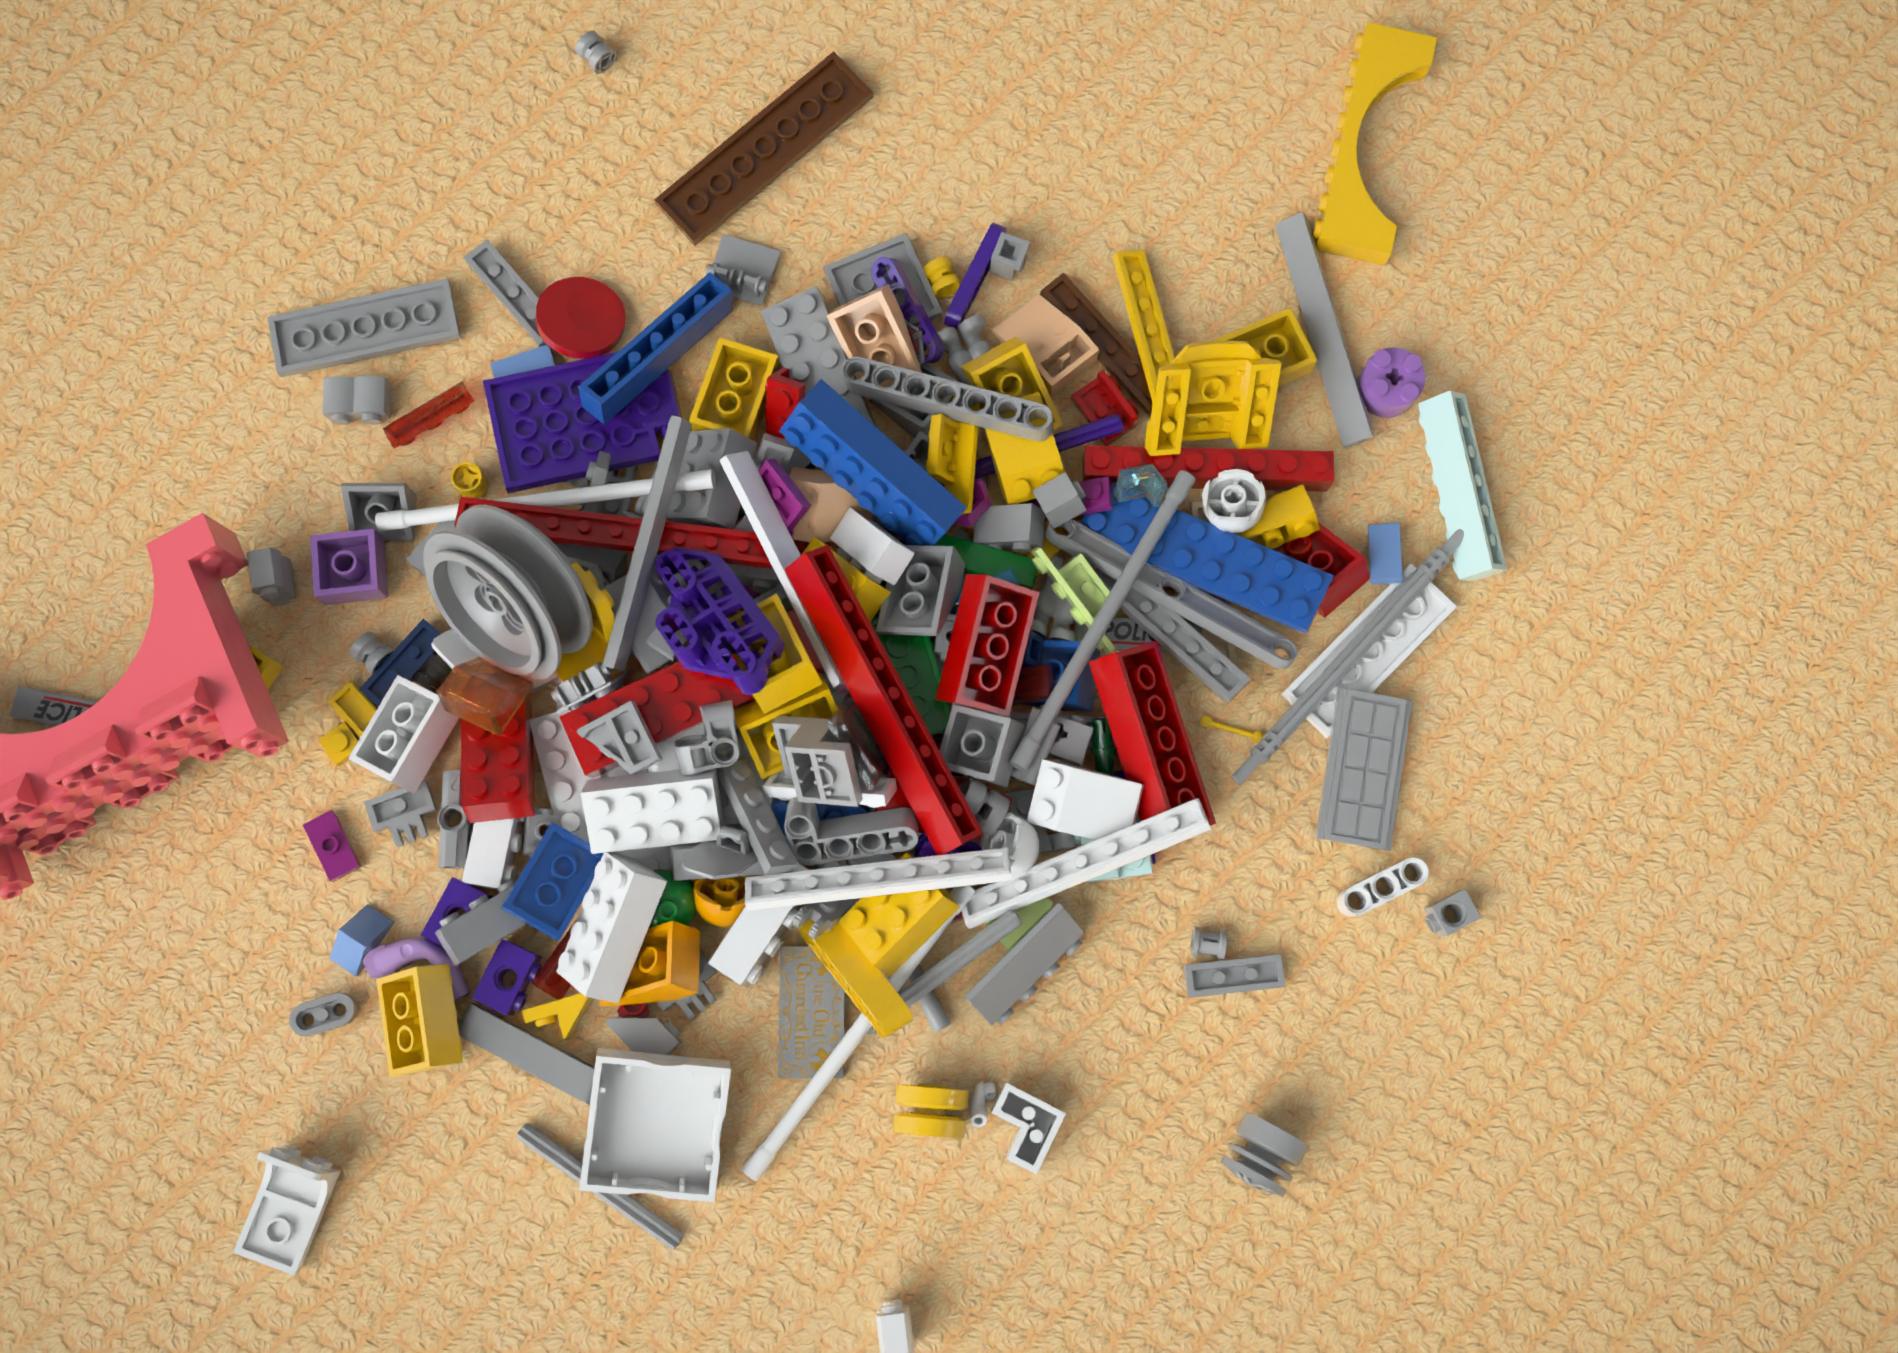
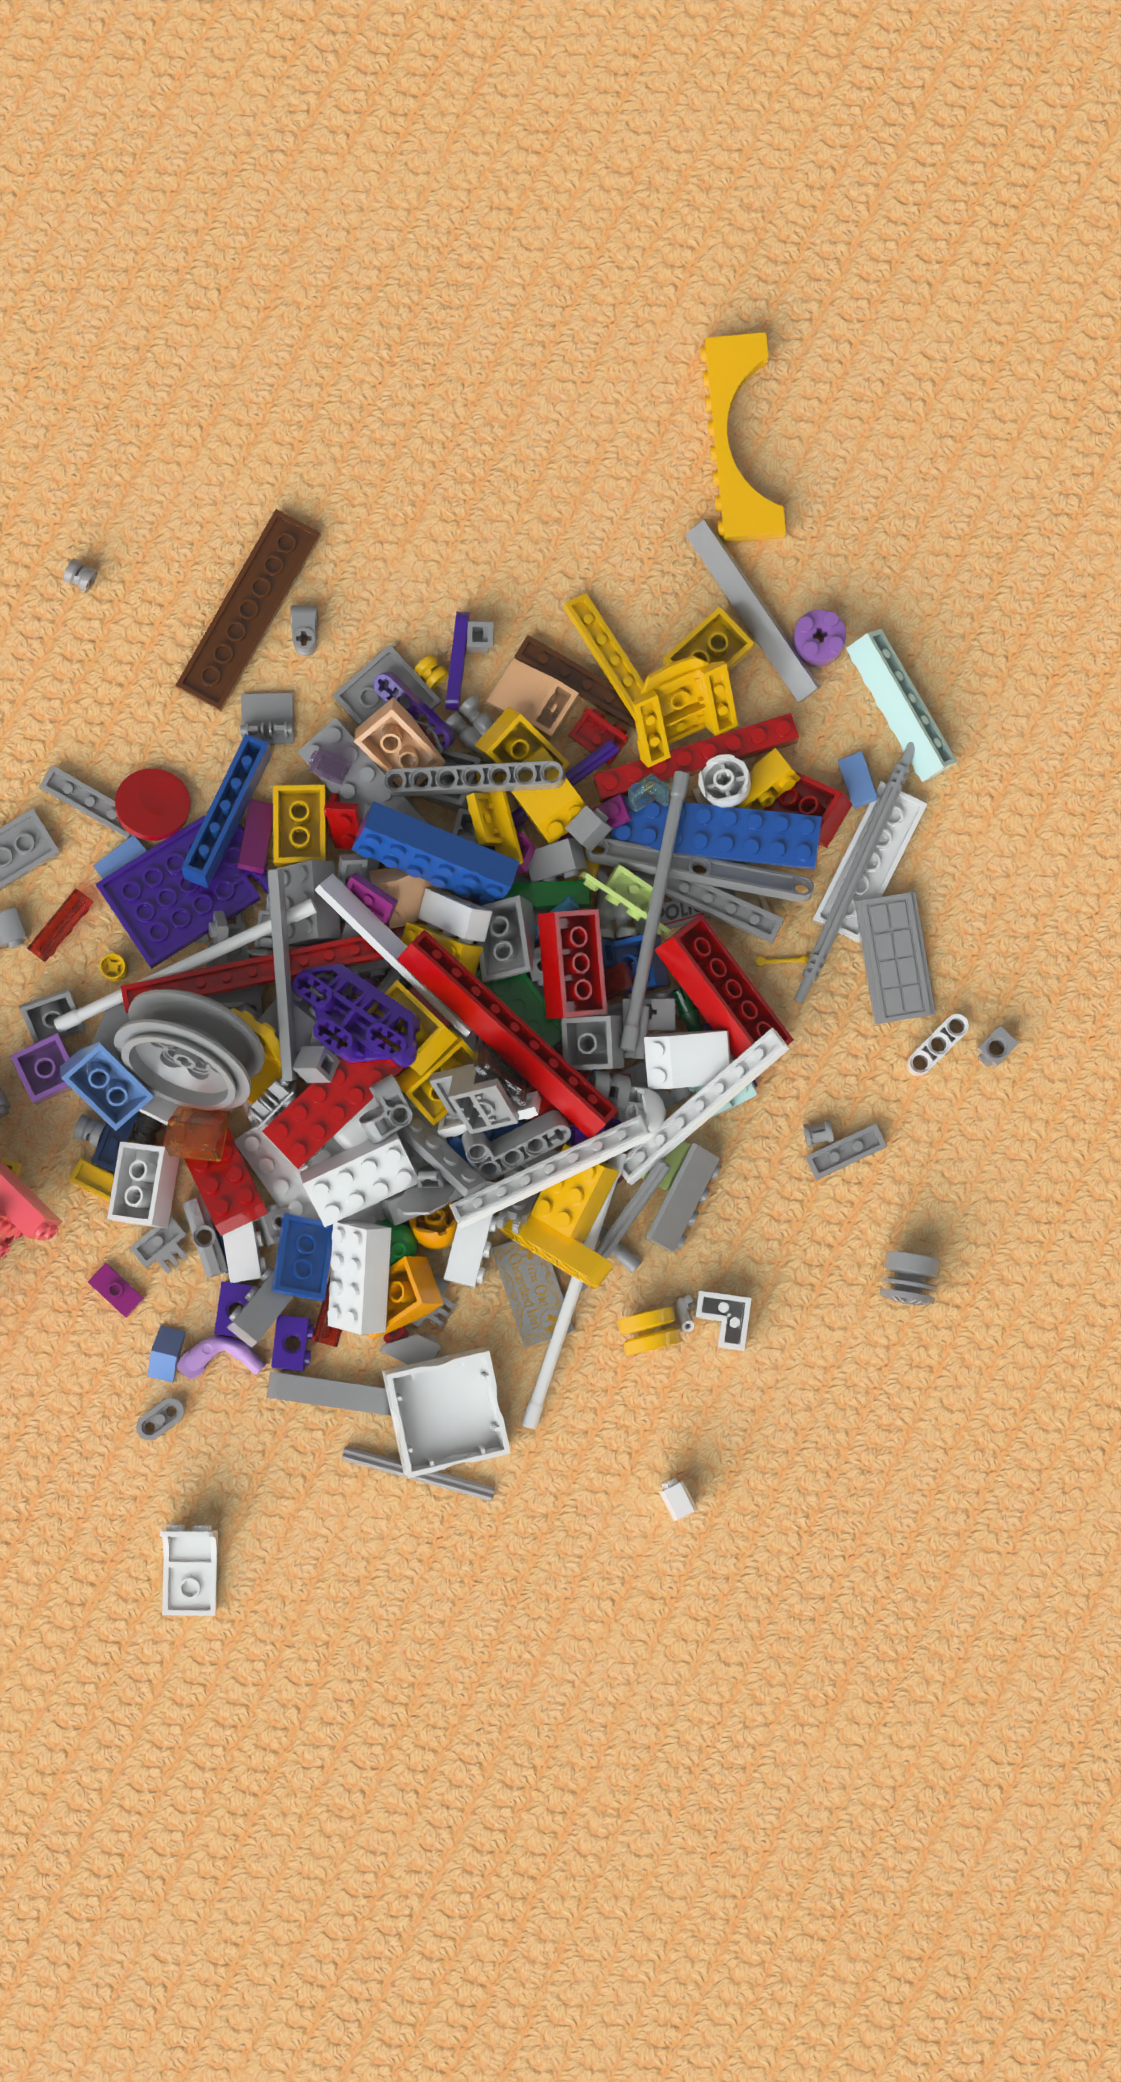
camera: 15 degrees left, 5 degrees up
(339, 743) = (92, 1209): yellow plate -> none
(400, 602) = (105, 1084): none -> medium blue slope
(419, 1020) = (238, 1396): yellow brick -> none
(568, 1009) = (347, 1350): yellow slope -> none
(624, 738) = (320, 1131): light grey wing -> none
(648, 659) = (316, 1064): none -> light grey brick
(679, 388) = (256, 836): none -> magenta tile
(789, 333) = (329, 765): none -> clear purple brick
(818, 187) = (304, 625): none -> light grey piece

